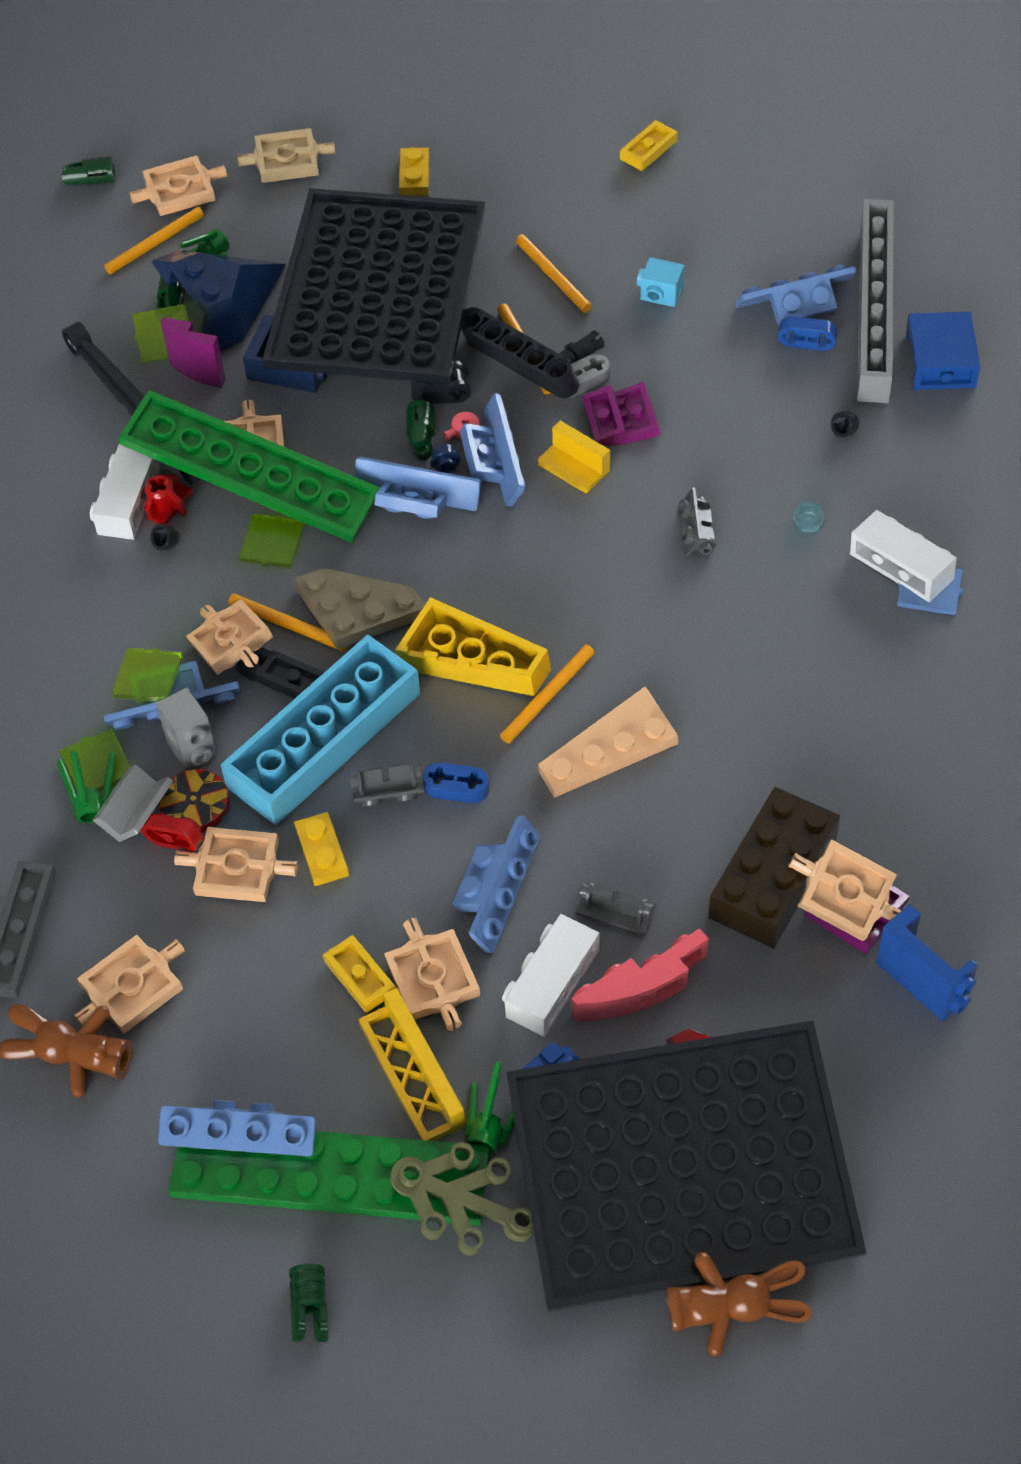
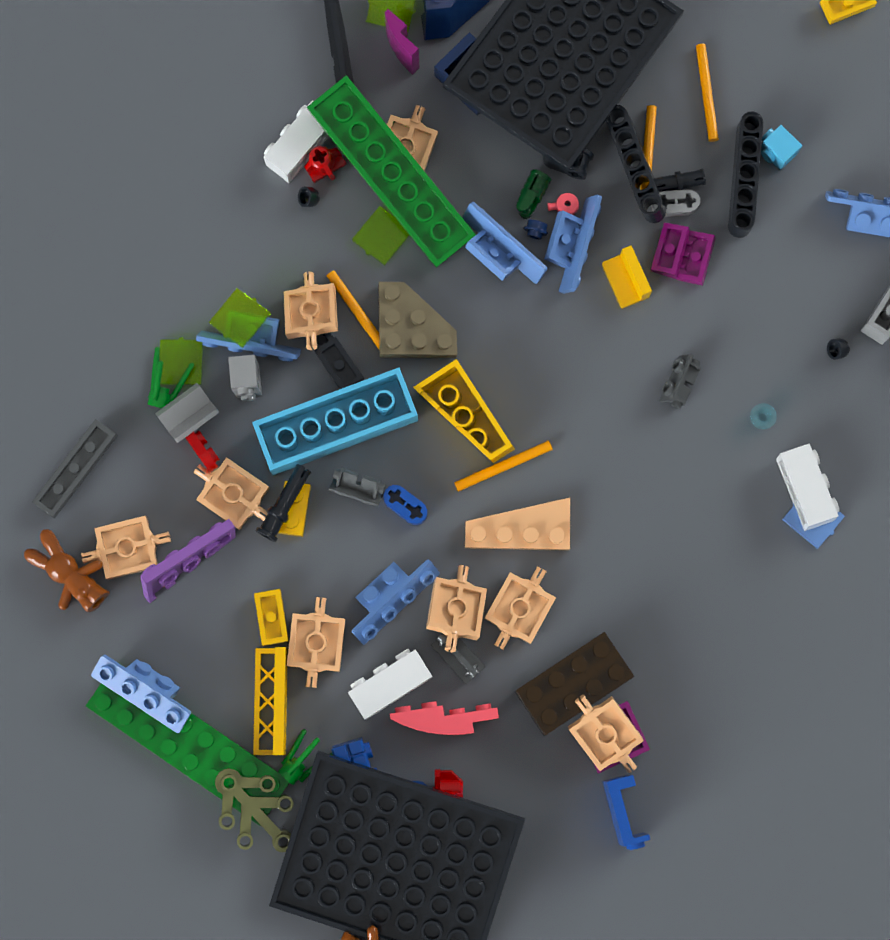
camera: 25 degrees right, 25 degrees up
(198, 796) = (230, 429): tile -> none
(213, 958) = (186, 559): none -> medium lavender wing
(305, 850) = (278, 513): none -> black pin
(308, 1298) = (135, 820): dark green hinge -> none
(583, 852) = (456, 608): none -> light nougat plate
(642, 319) = (747, 163): none -> black beam
(659, 821) = (520, 608): none -> light nougat plate
(807, 333) = (859, 252): blue beam -> none

